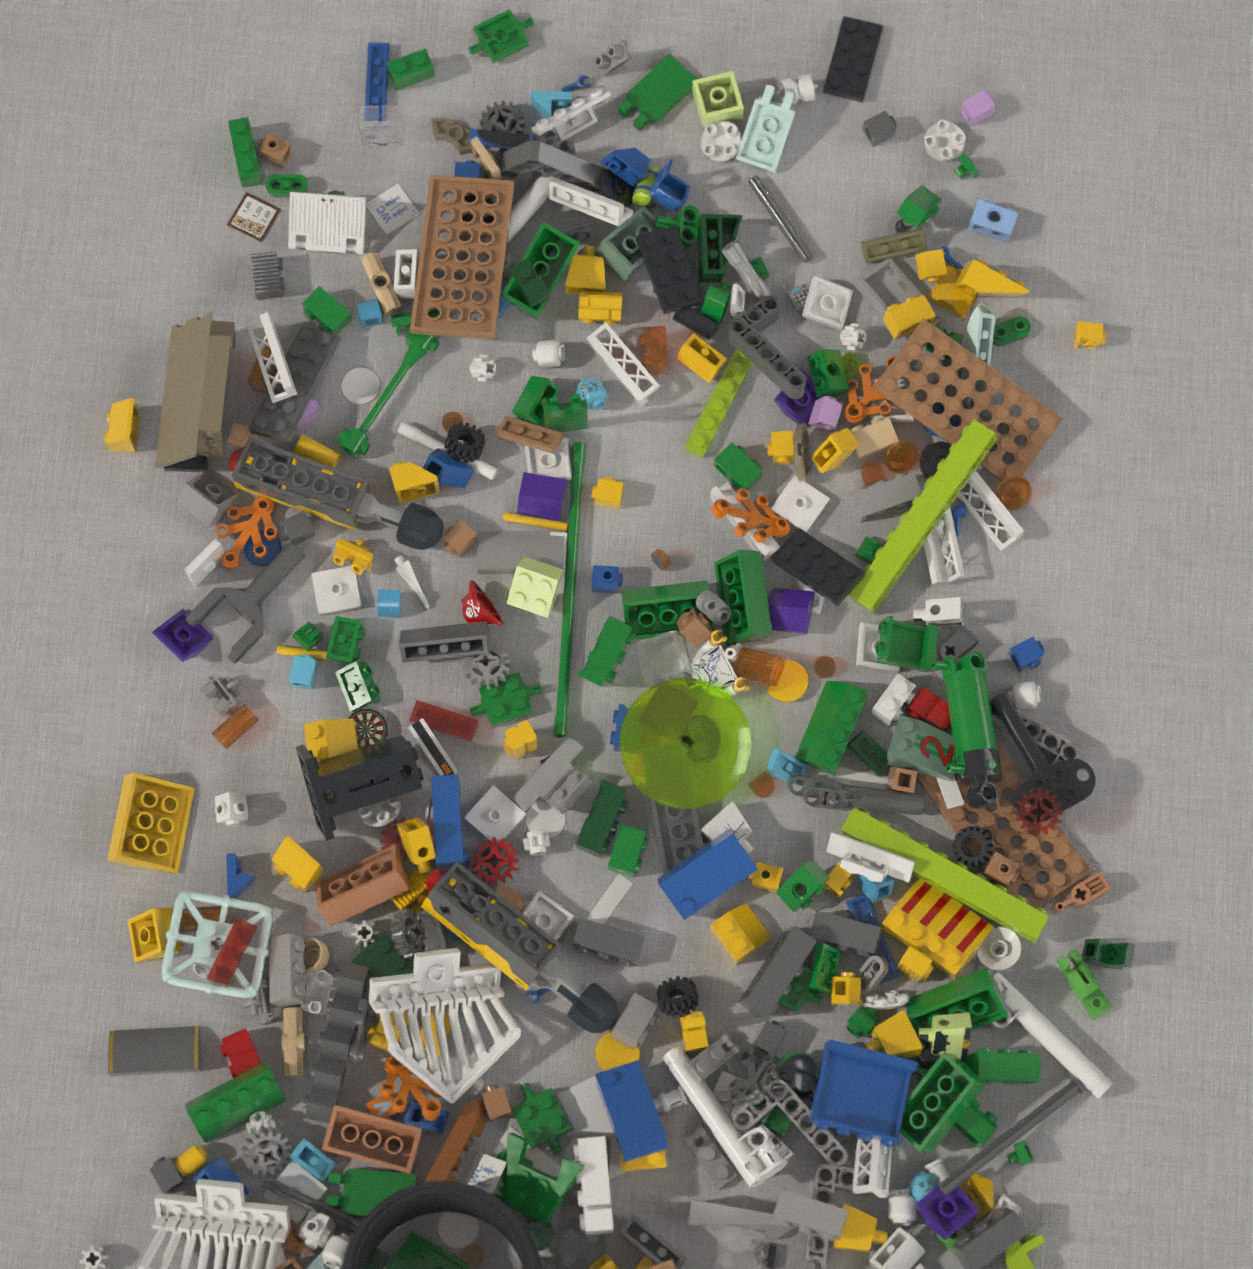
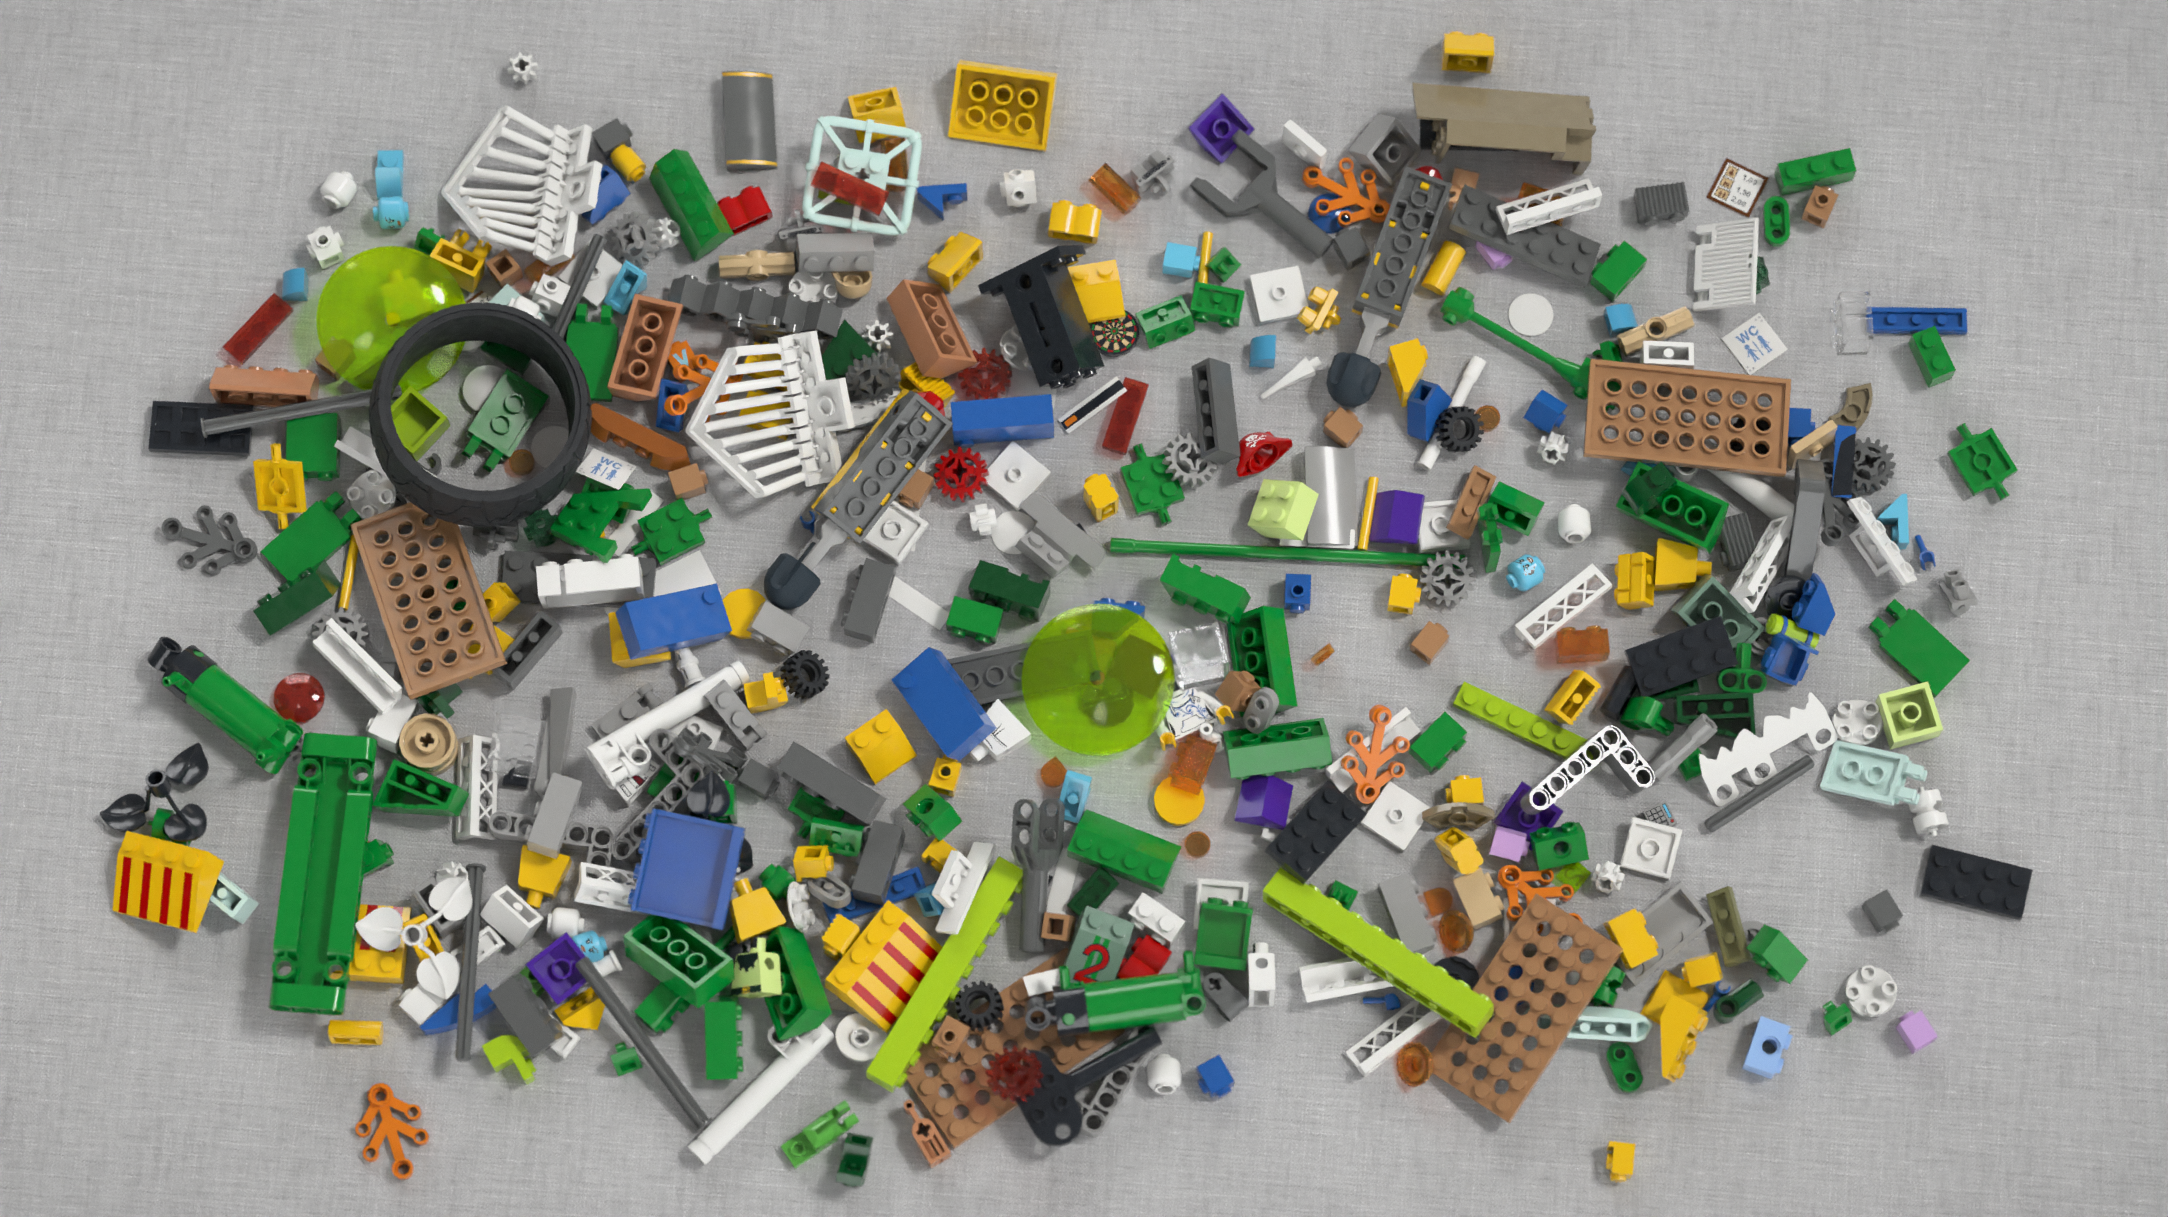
camera: 90 degrees right, 0 degrees up
(264, 762) = (1074, 222): none -> yellow brick
(417, 843) = (975, 382): yellow torso -> none
(451, 372) = (1546, 412): none -> blue brick
(596, 455) = (1457, 578): none -> light grey gear
(650, 472) = (1430, 642): none -> medium nougat brick
(737, 300) = (1644, 737): white slope -> none
(747, 216) = (1751, 750): none -> white piece
(954, 240) = (1738, 1000): none -> dark green piece

